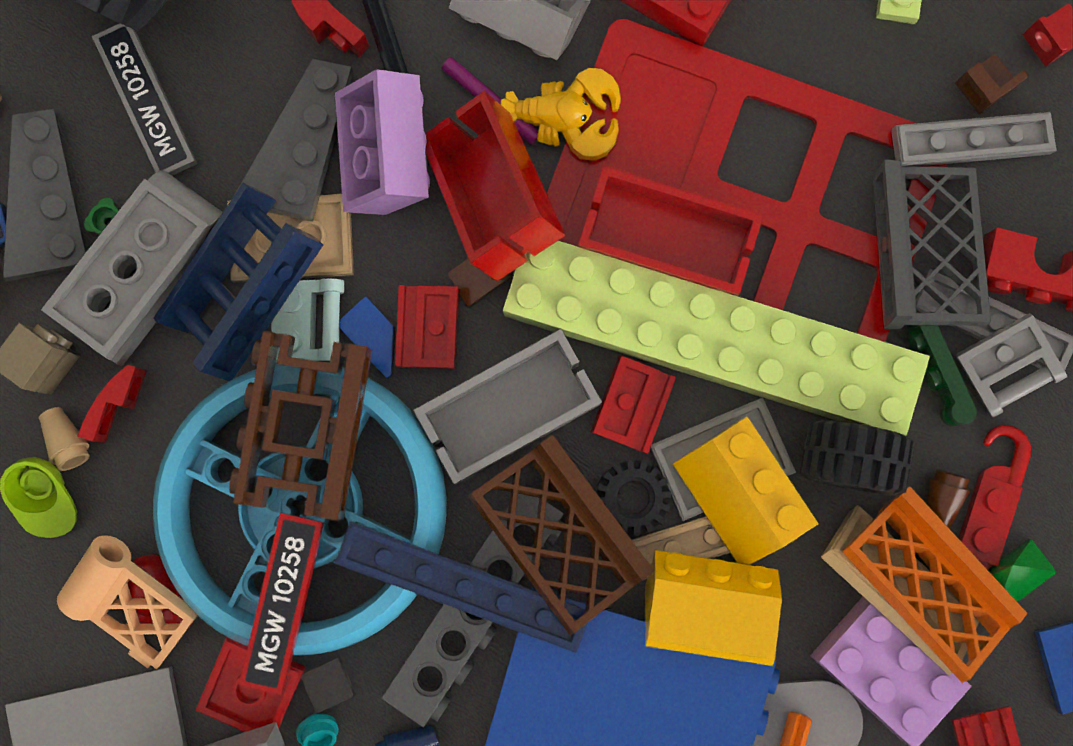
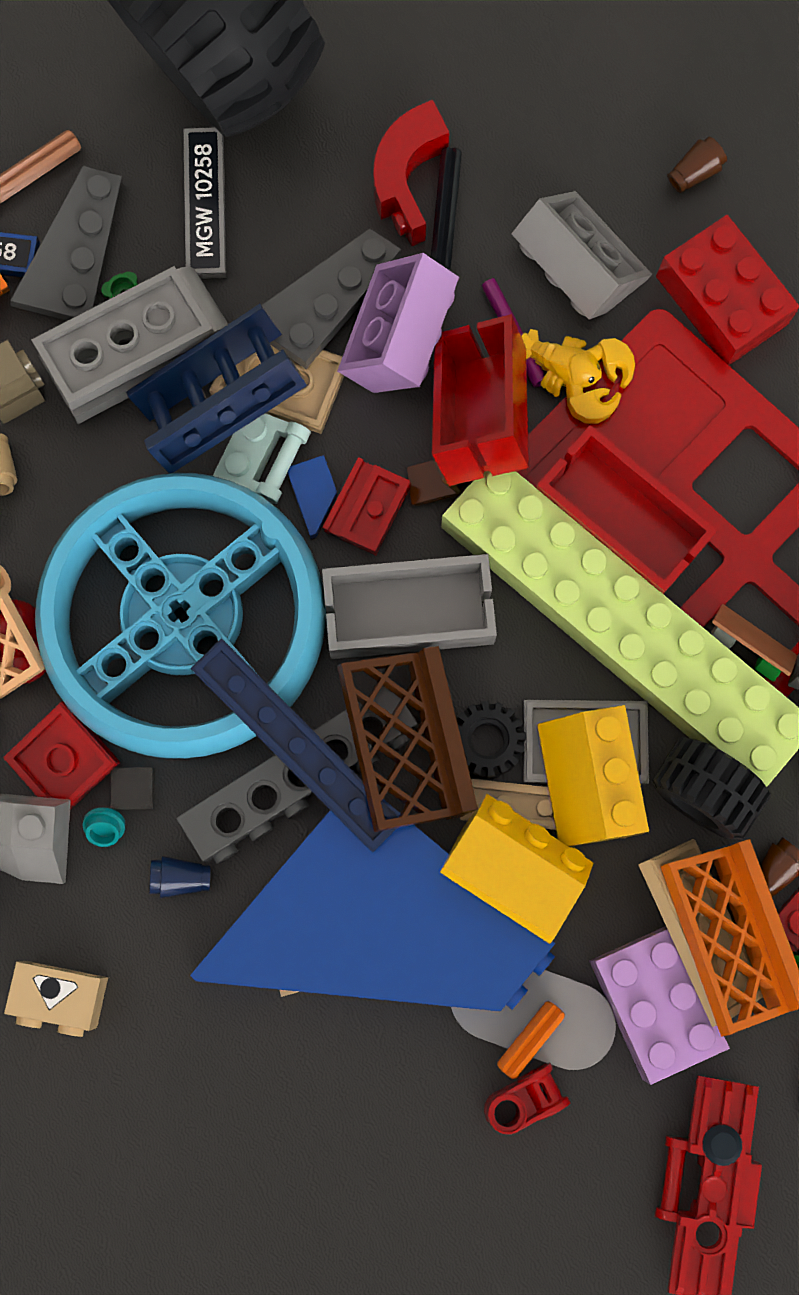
camera: 20 degrees right, 5 degrees down
(119, 391) = (67, 444): red slope -> none
(281, 604) = (126, 686): tile -> none
(339, 430) = (185, 515): reddish brown fence -> none
(633, 404) = (524, 656): red plate -> none
(859, 306) = (772, 655): none -> nougat piece

